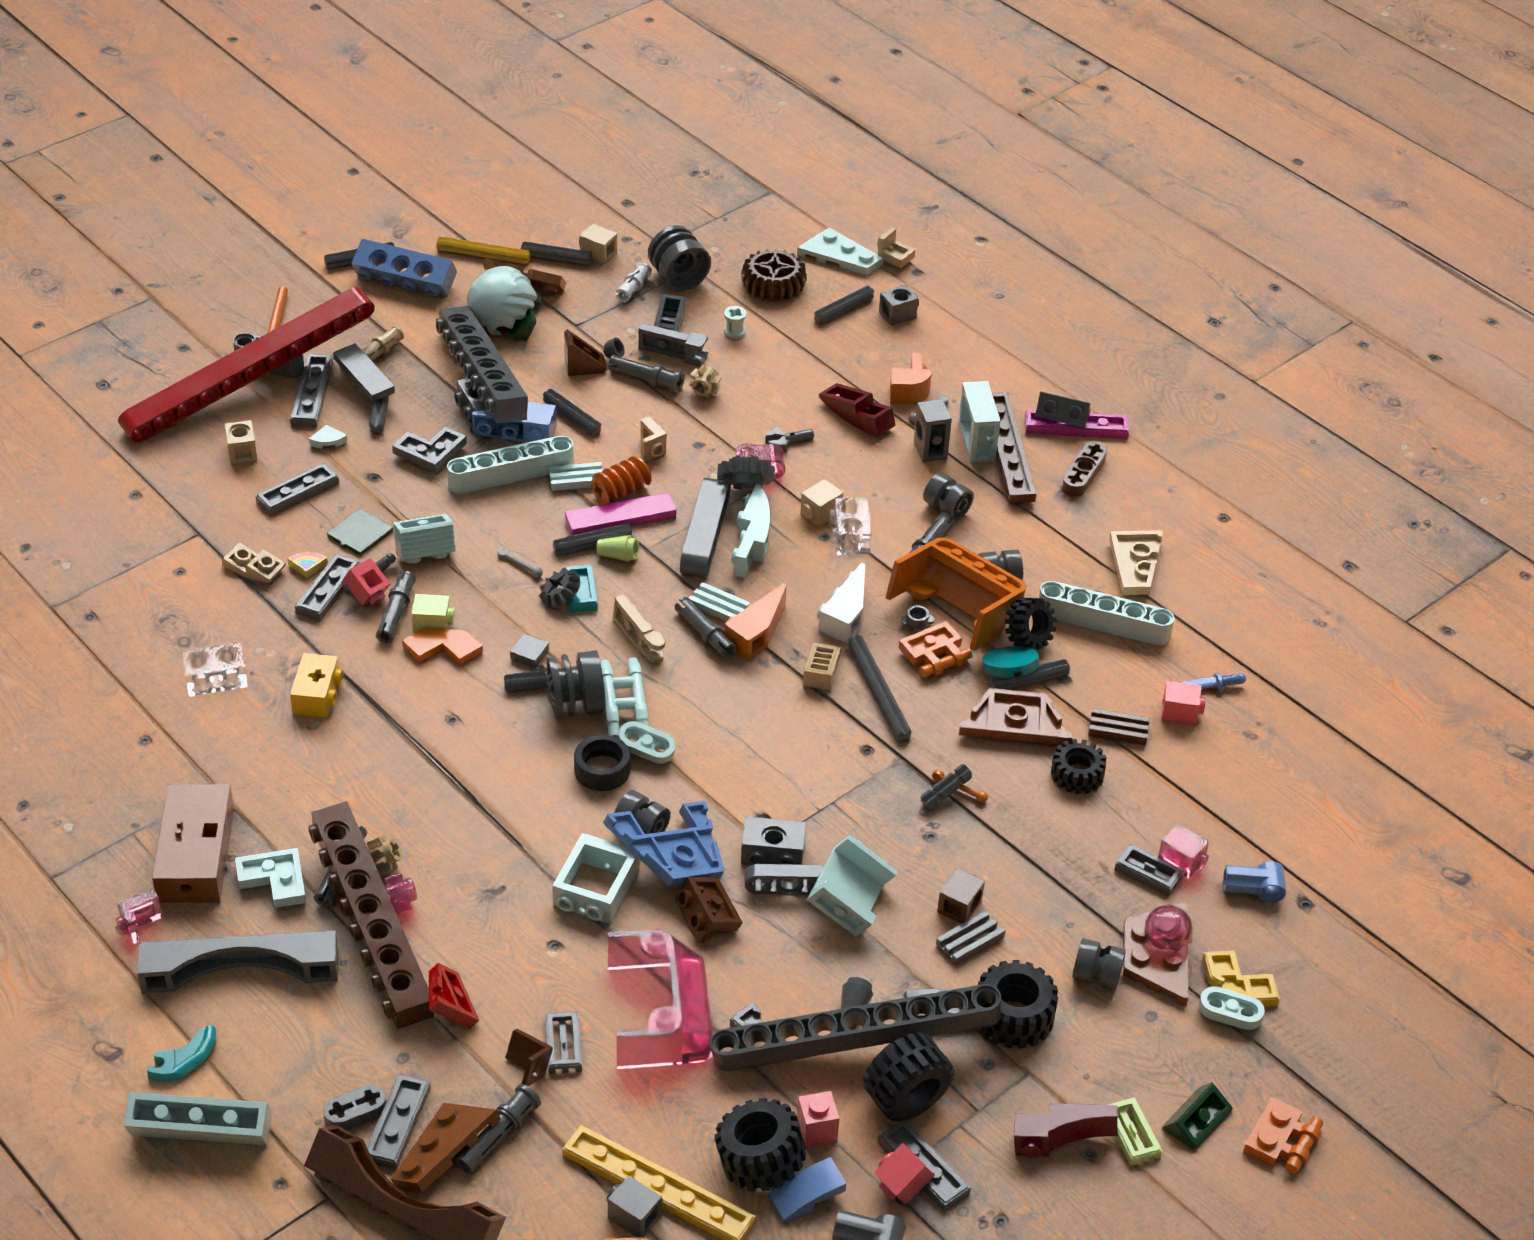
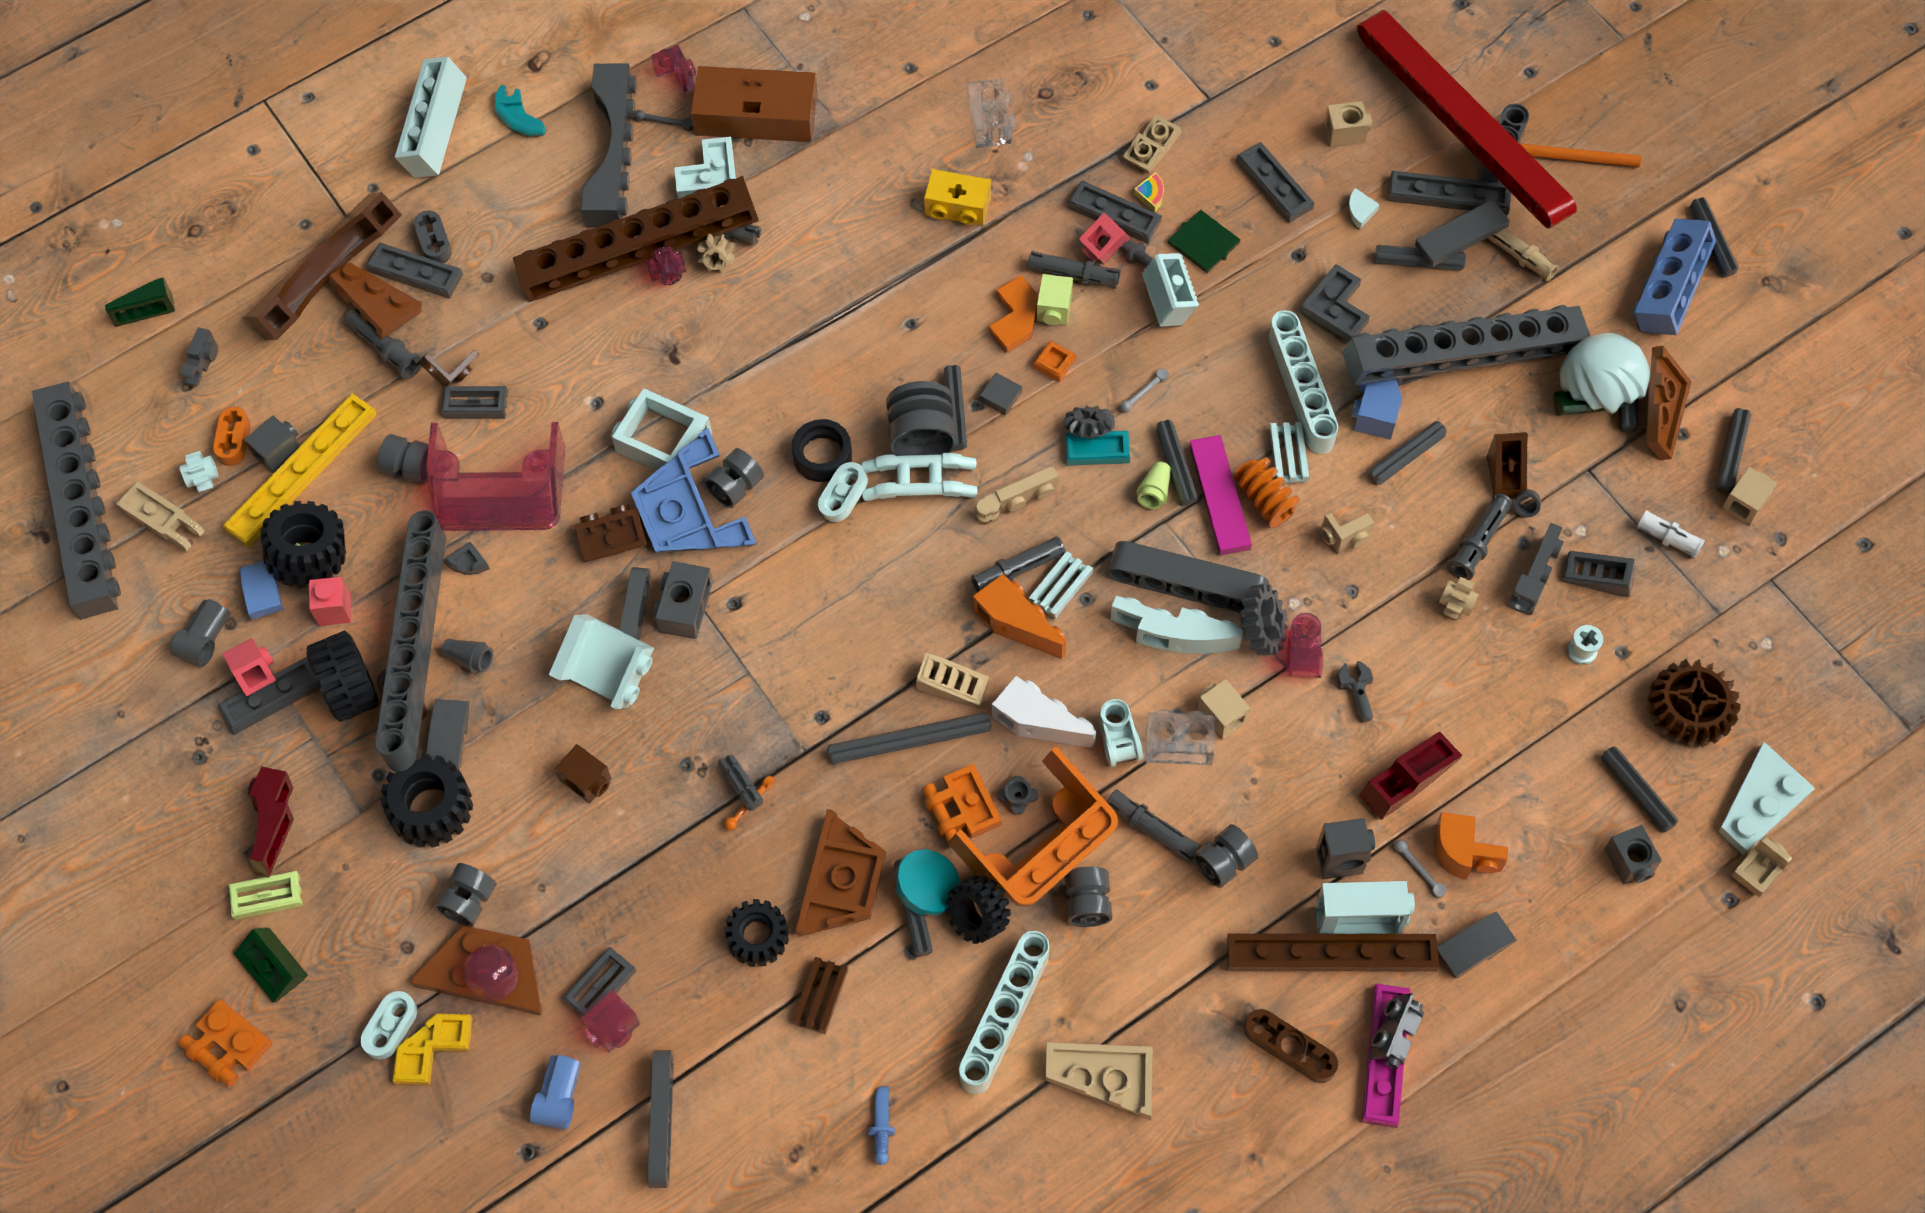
camera: 100 degrees right, 20 degrees up
(206, 908) = (685, 123): none -> dark grey hinge
(450, 997) = (531, 303): red wing -> none
(483, 250) = (1734, 369): yellow axle -> none
(492, 618) = (1054, 361): none -> orange tile
(644, 1078) = (403, 458): none -> dark grey wheel
(679, 258) = (1705, 580): dark grey wheel -> none
(849, 556) = (1119, 739): none -> light aqua piece
(966, 934) = (523, 757): dark grey tile -> none
(978, 370) = (1476, 944): none -> dark grey slope
(1182, 703) = (841, 1072): coral brick -> none
(1288, 808) = (660, 1119): none -> dark grey beam

